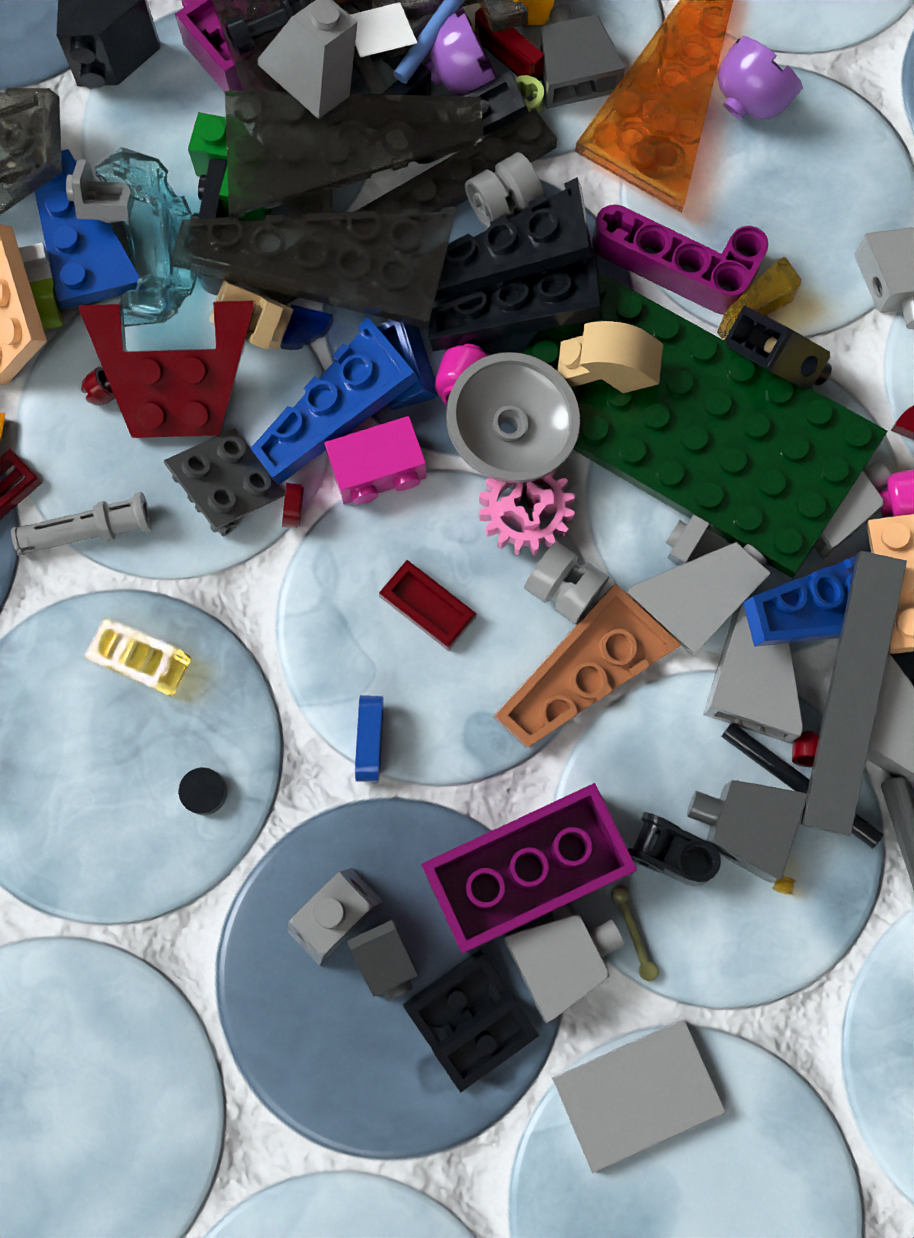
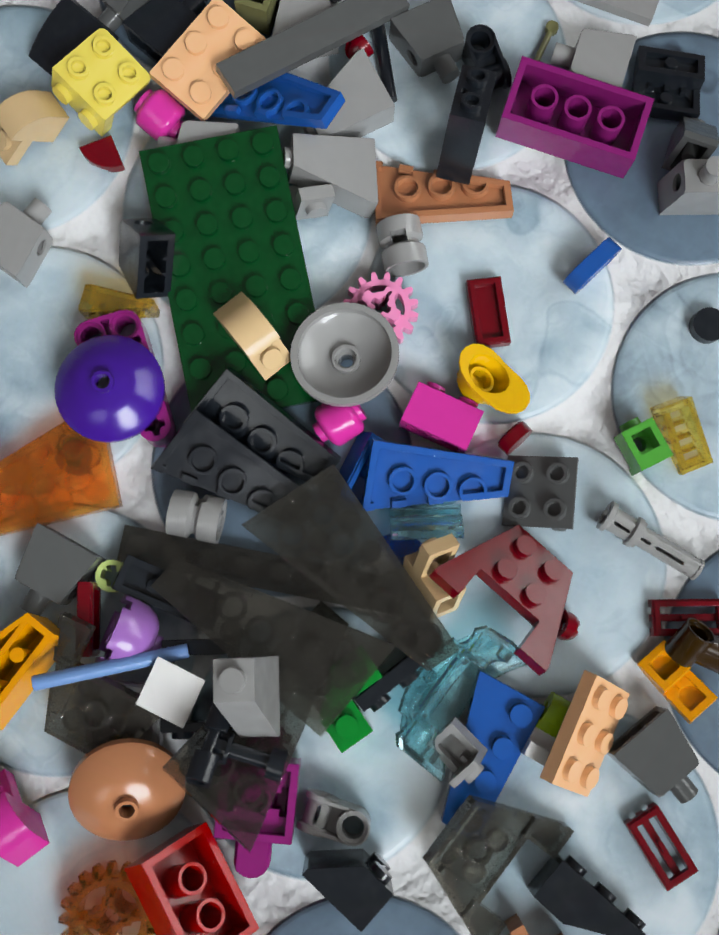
camera: 140 degrees left, 5 degrees up
(158, 590) = (653, 444): none -> bright green brick
(159, 78) = (331, 818): none -> light grey piece
(331, 339) = (426, 522): none -> clear light blue tile
(359, 528) = (490, 380): none -> yellow piece
(611, 727) = (466, 124): none -> black window
(677, 233) = (125, 404): none -> dark purple dish

